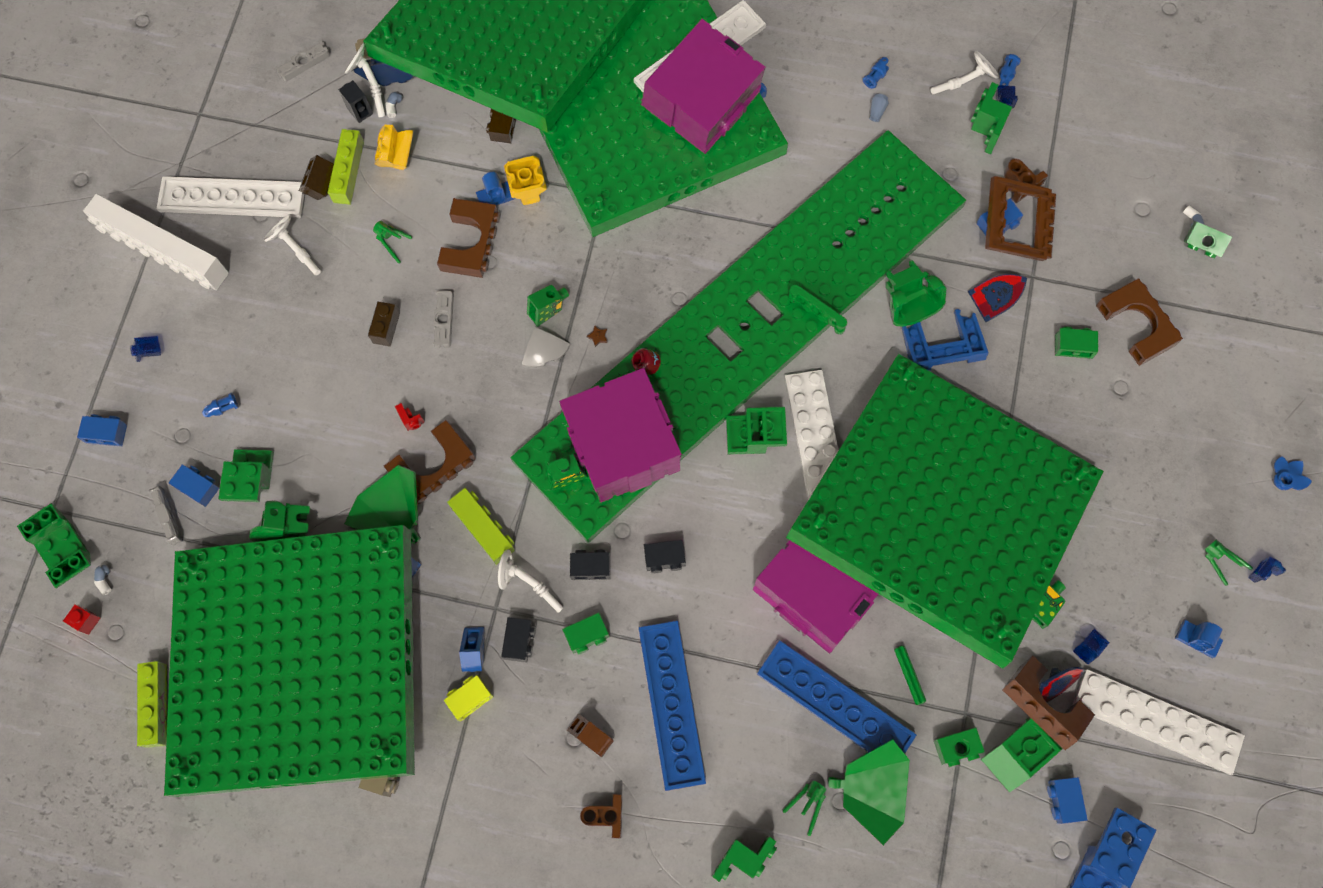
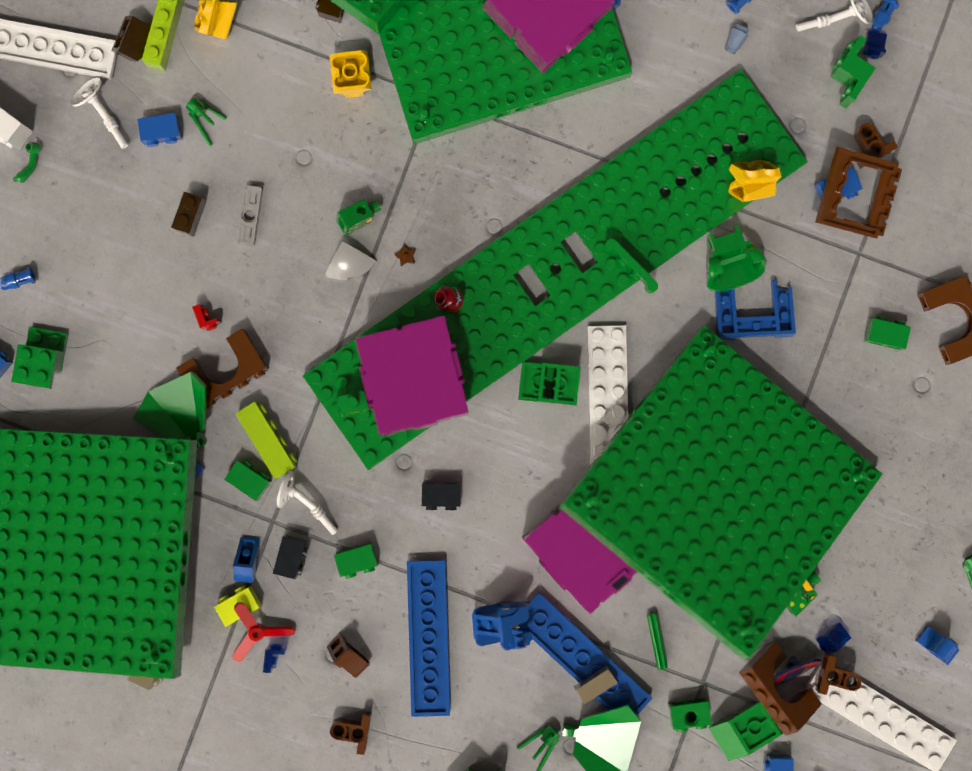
camera: 10 degrees right, 15 degrees up
(221, 311) = (33, 149): none -> green piece
(281, 522) = (73, 414): green piece -> none
(349, 253) = (160, 129): none -> blue brick
(466, 568) = (248, 480): none -> green brick
(473, 260) = (287, 156): reddish brown arch -> none
(485, 715) = (253, 636): none -> red piece
(494, 191) = (315, 81): blue tile -> none
(508, 751) = (270, 660): none -> clear blue bracket
(590, 565) = (368, 494): black brick -> none
(745, 670) = (495, 625): none -> blue animal
(854, 727) = (595, 684): none -> dark tan panel
(920, 216) = (754, 180): none -> yellow piece
(997, 294) = (818, 271): shield -> none
(1108, 681) = (840, 678): none -> reddish brown tile

